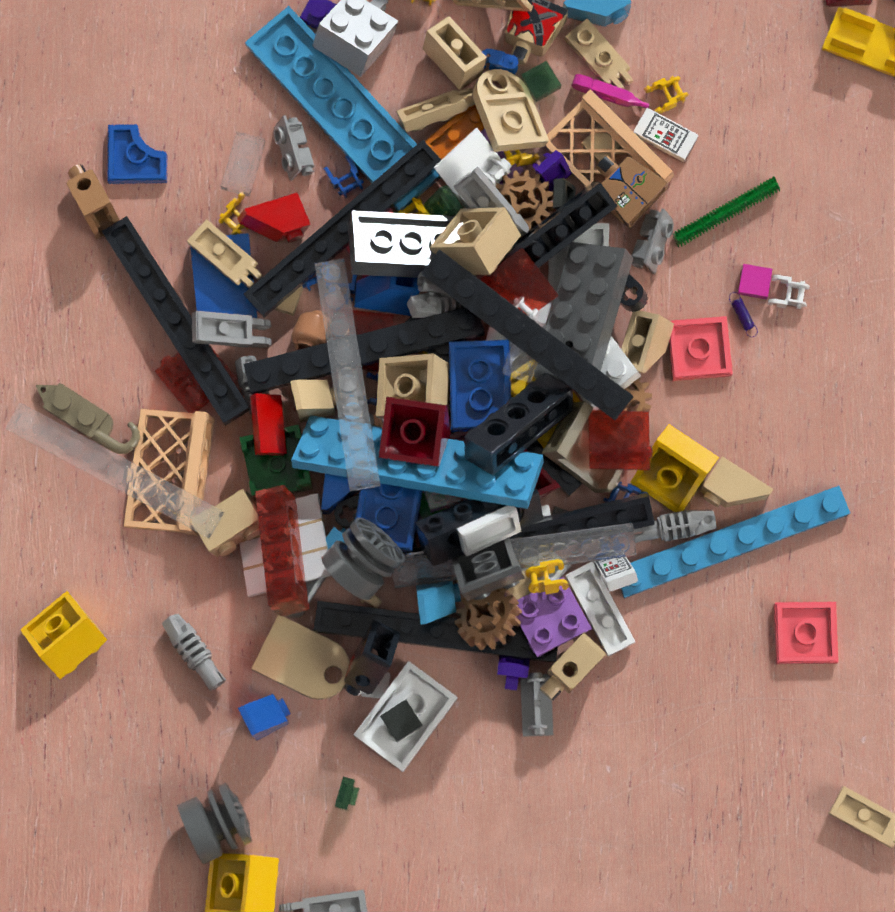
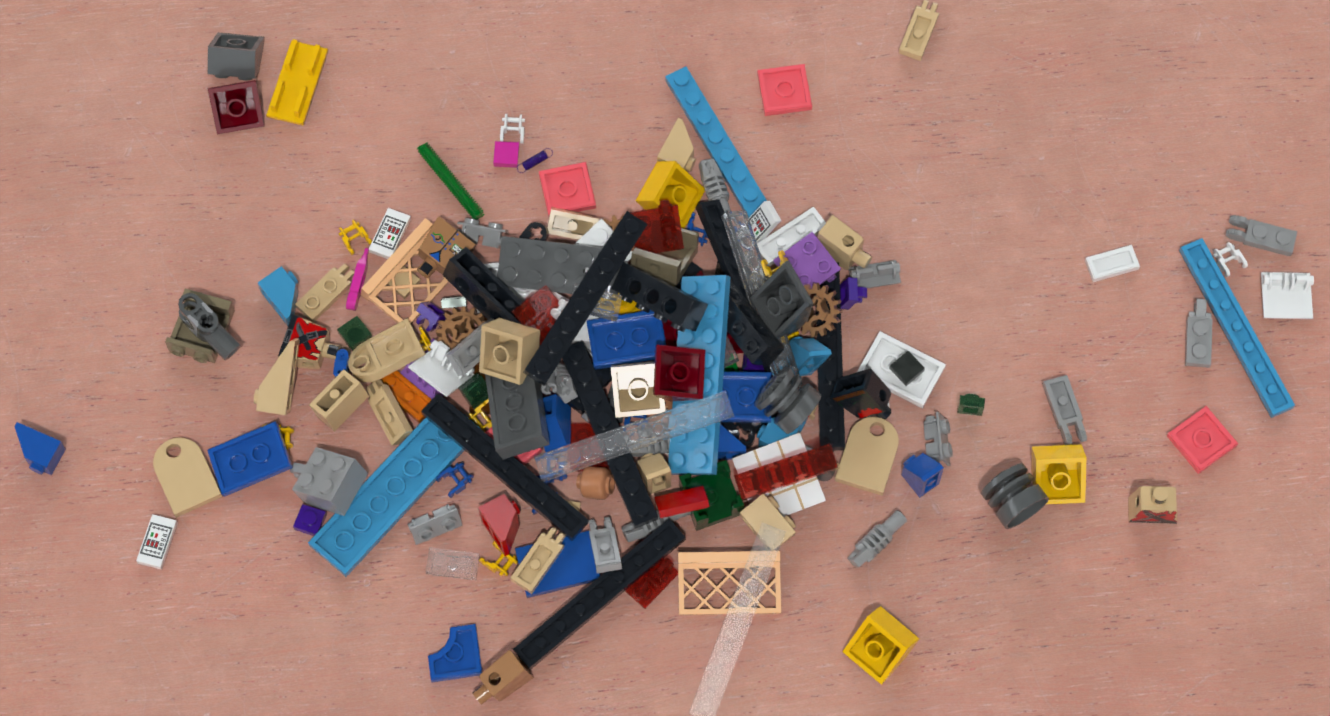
camera: 100 degrees left, 10 degrees down
(85, 417) = (693, 658): dark tan plate -> none
(294, 747) = (938, 430): none -> light grey hinge
(489, 530) = (750, 308): white tile -> none

